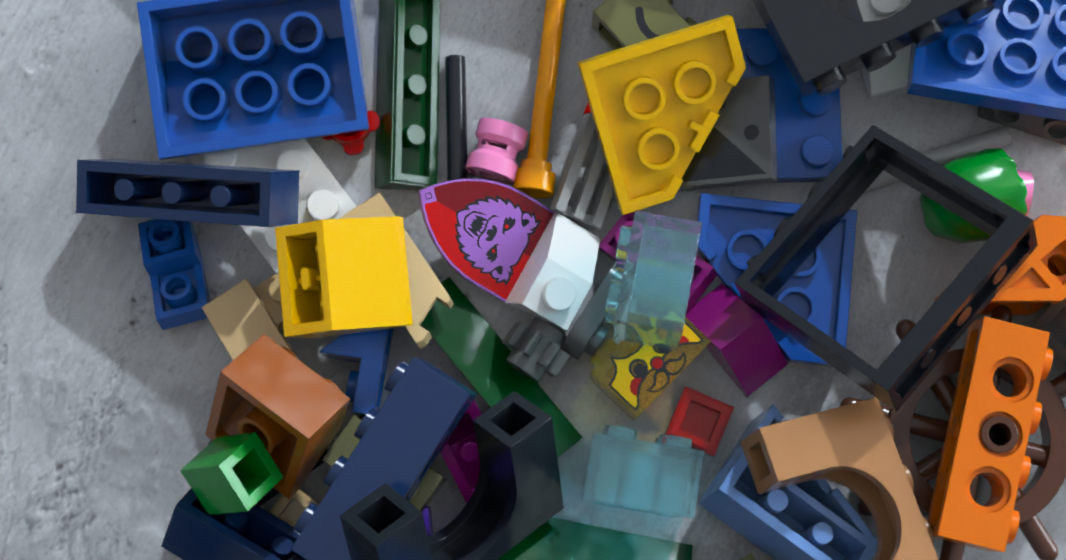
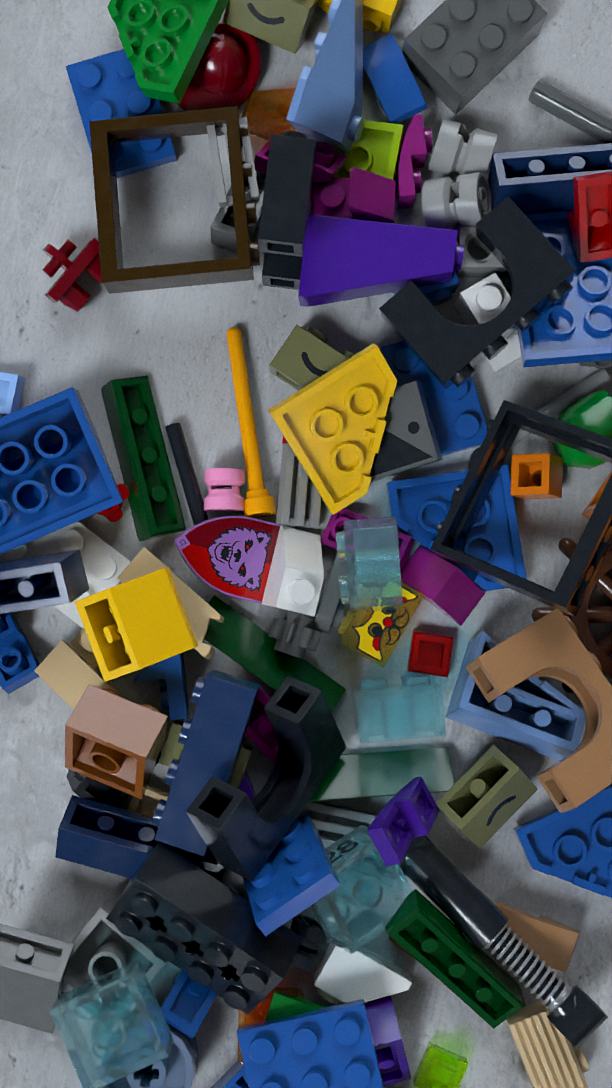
camera: 20 degrees left, 5 degrees up
(232, 473) = (94, 794): green brick -> none
(882, 223) = (526, 473): none -> orange plate

